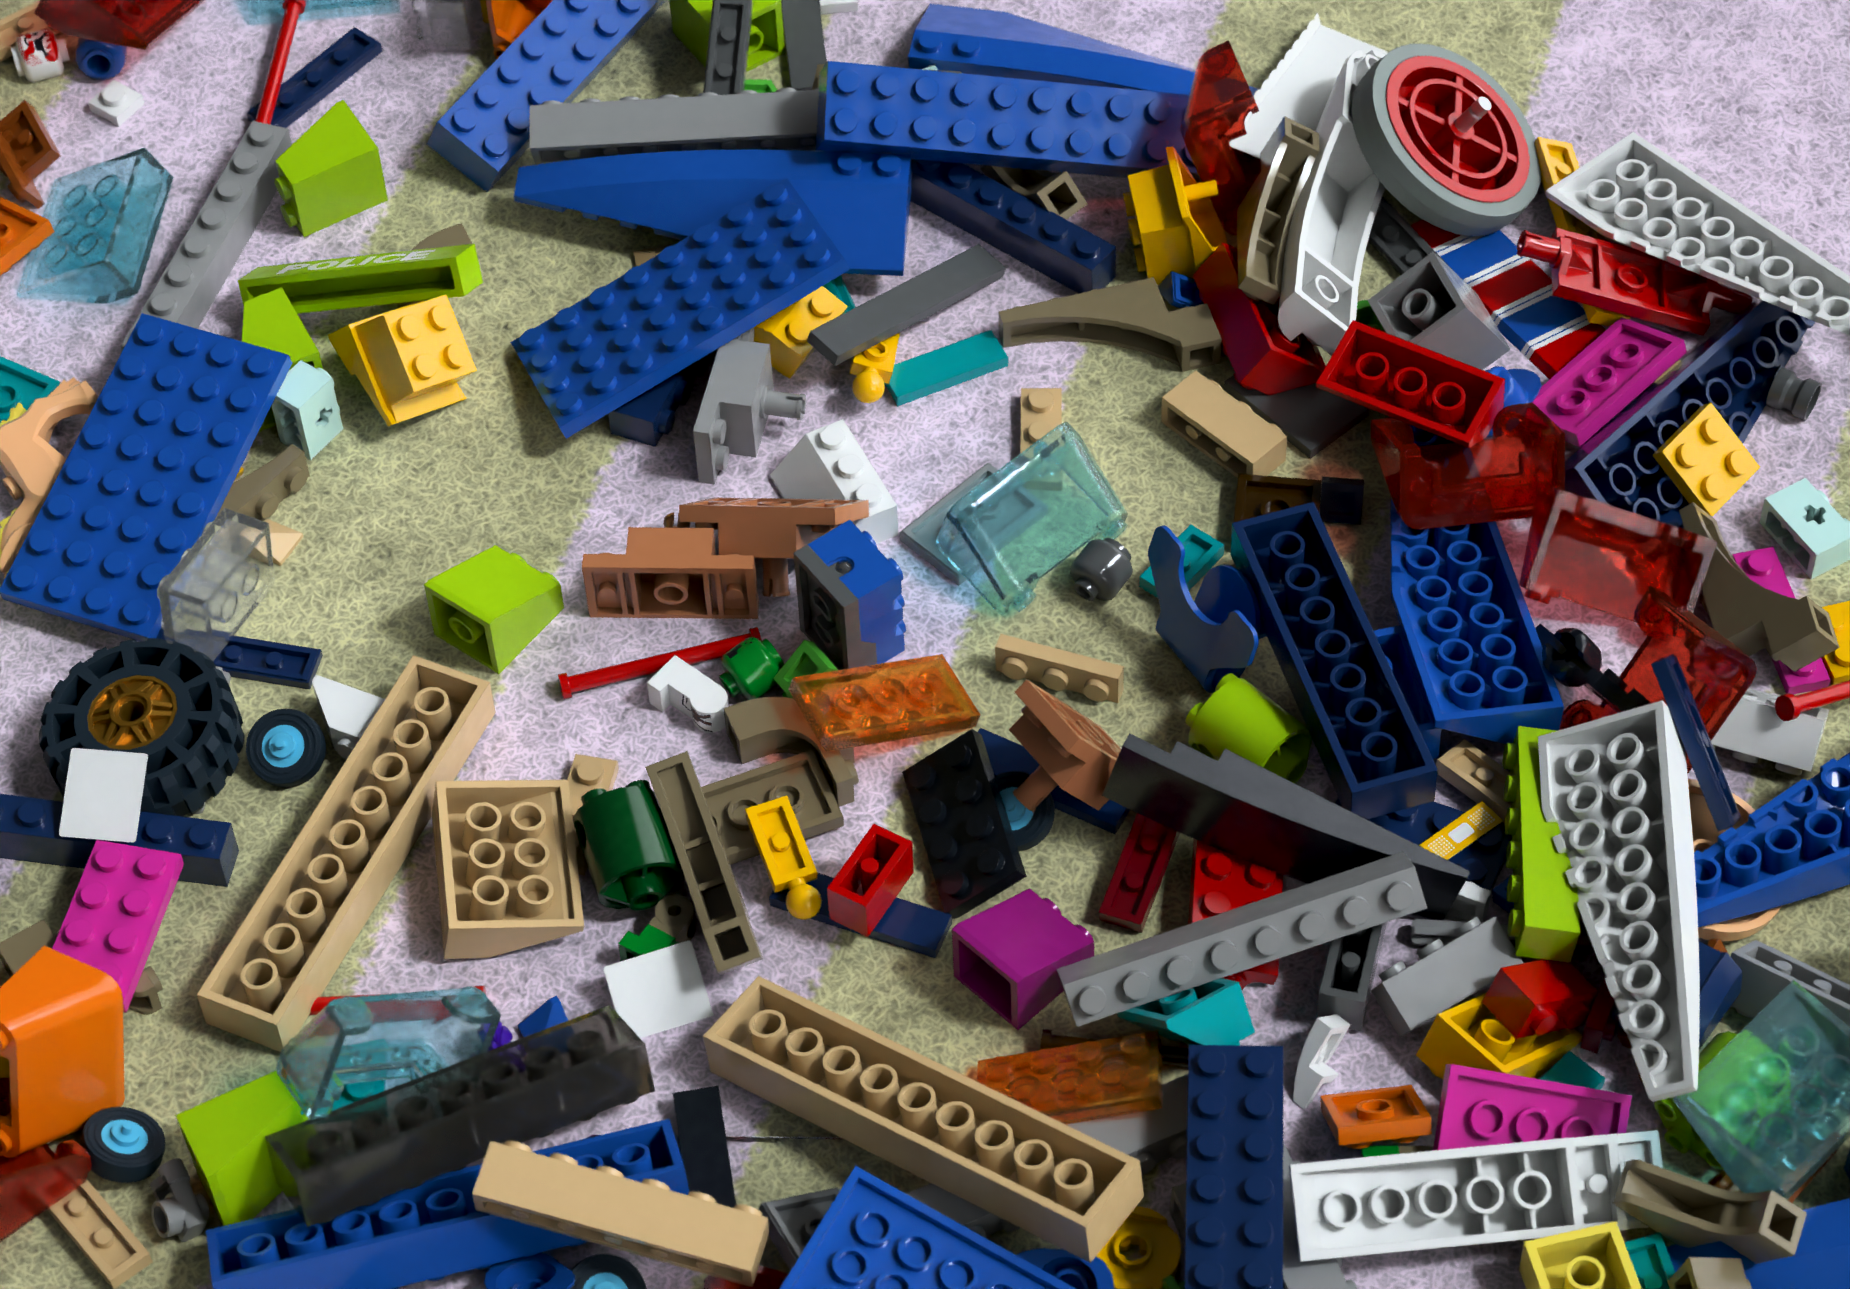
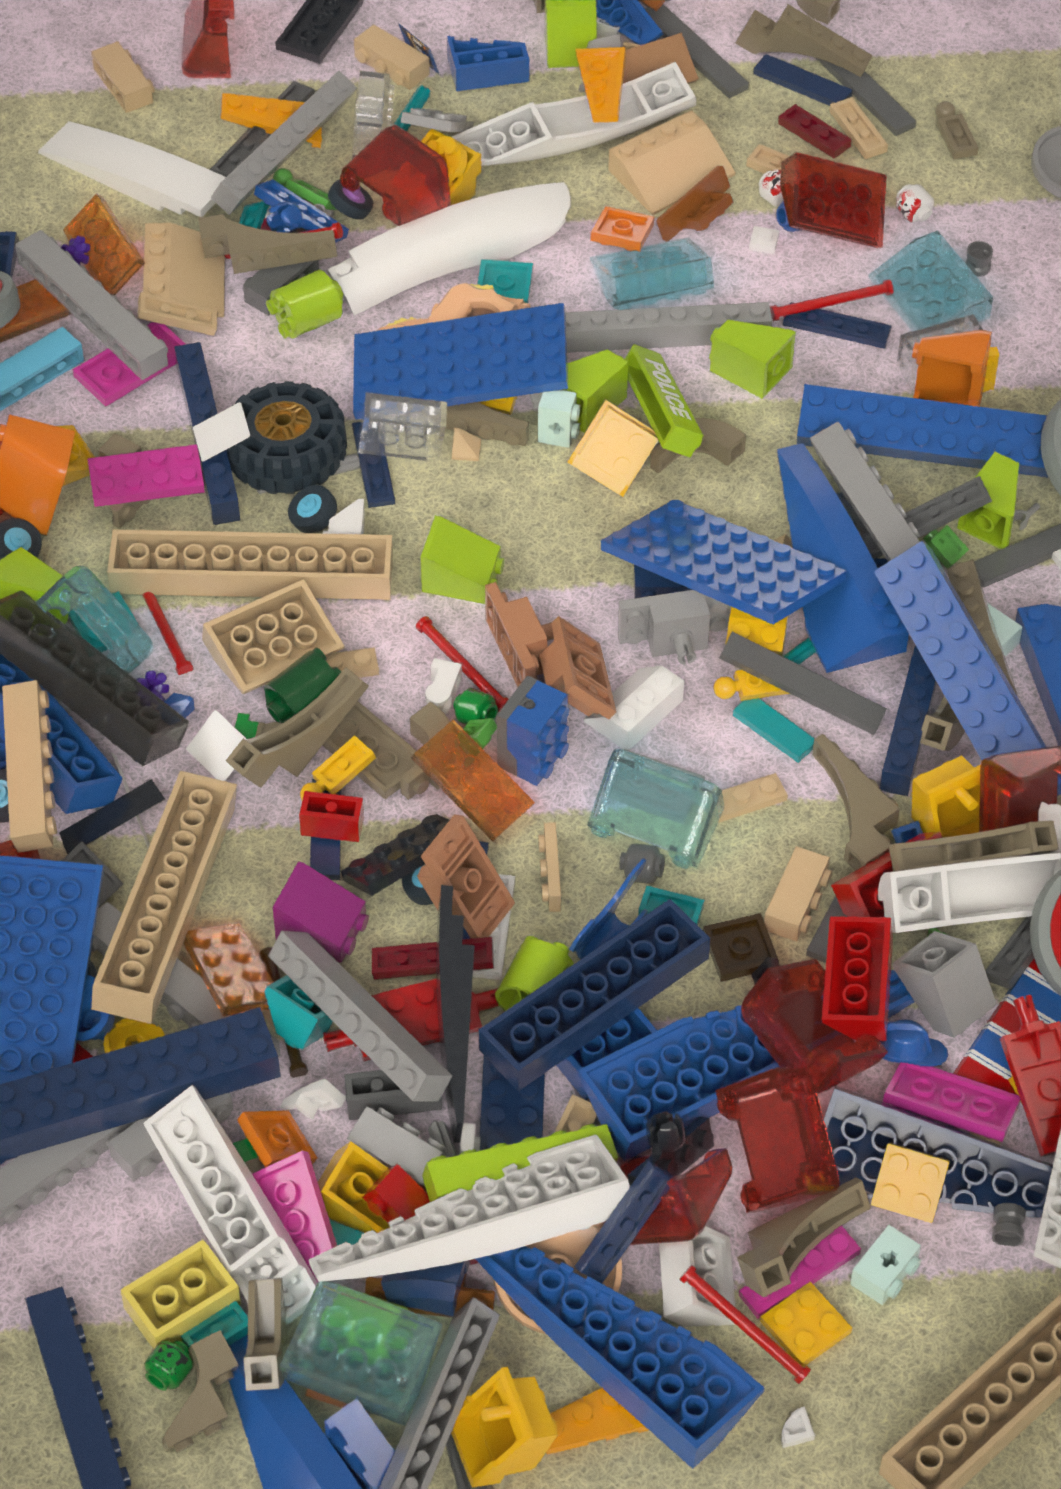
camera: 65 degrees right, 0 degrees up
(1462, 831) = (518, 1124): yellow sticker -> none

